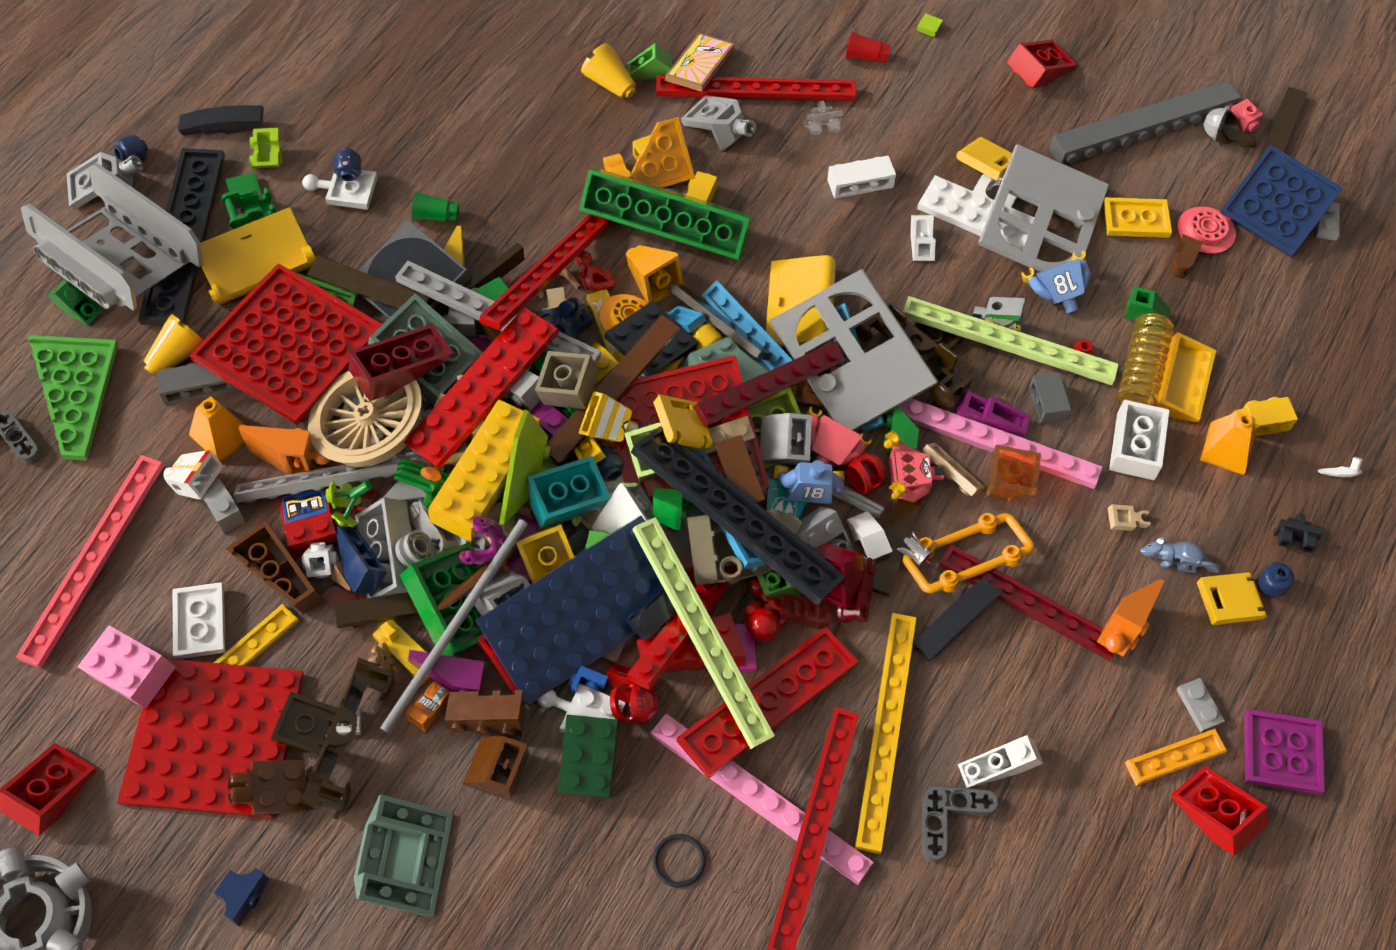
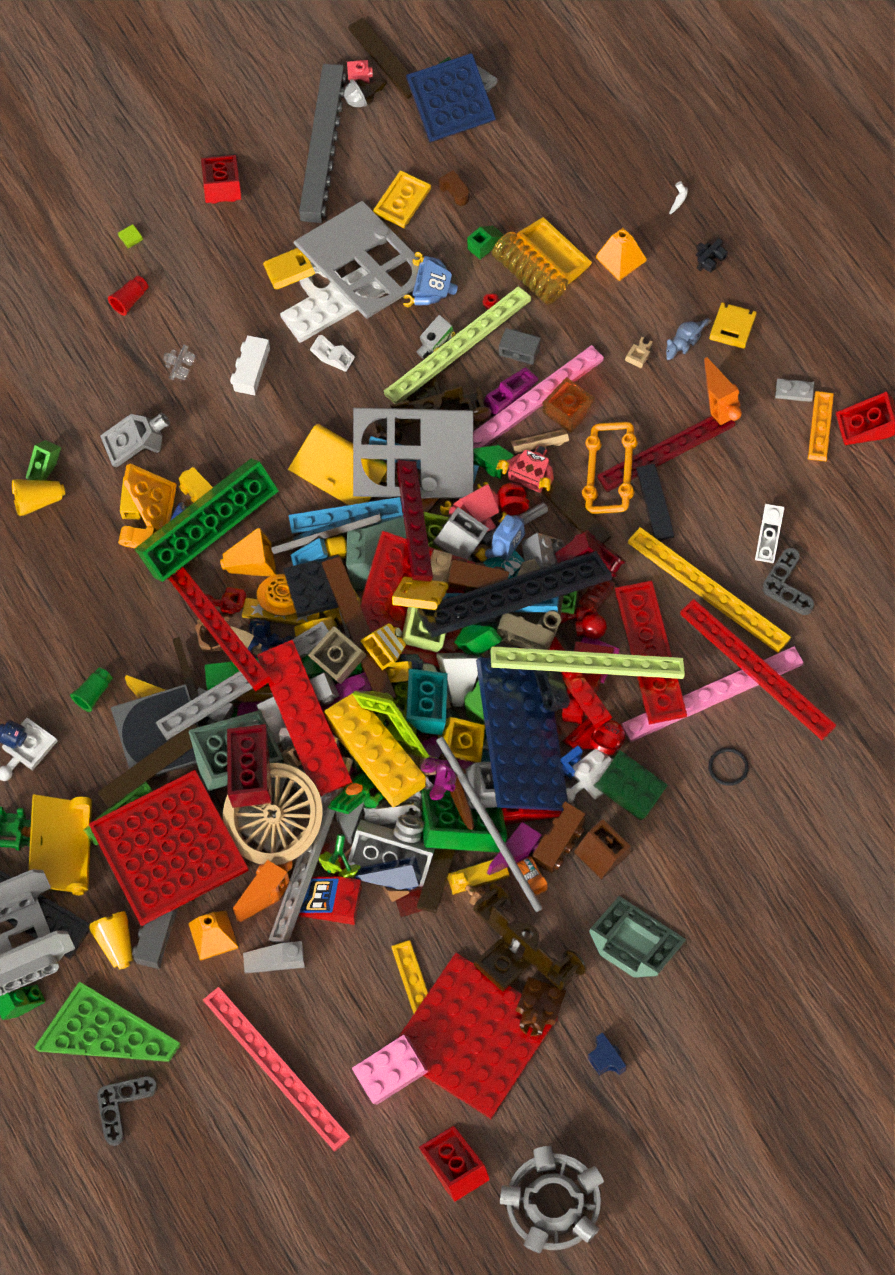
camera: 55 degrees left, 5 degrees up
(193, 473) = (245, 966): white torso -> none
(198, 621) = (373, 1009): white plate -> none
(273, 563) = (358, 936): reddish brown wedge -> none
(317, 567) = (374, 902): white brick -> none
(699, 62) = (65, 422): tile -> none
(764, 89) = (115, 396): red plate -> none
(870, 534) = (556, 522): white slope -> none
(920, 553) = (596, 497): flat silver piece -> none
(1139, 440) = (587, 309): white brick -> none
(1208, 225) = (438, 155): coral wheel -> none
(1271, 415) = (613, 219): yellow hinge -> none
(1276, 579) = (736, 290): dark blue head -> none
(1284, 751) = (852, 360): magenta plate -> none

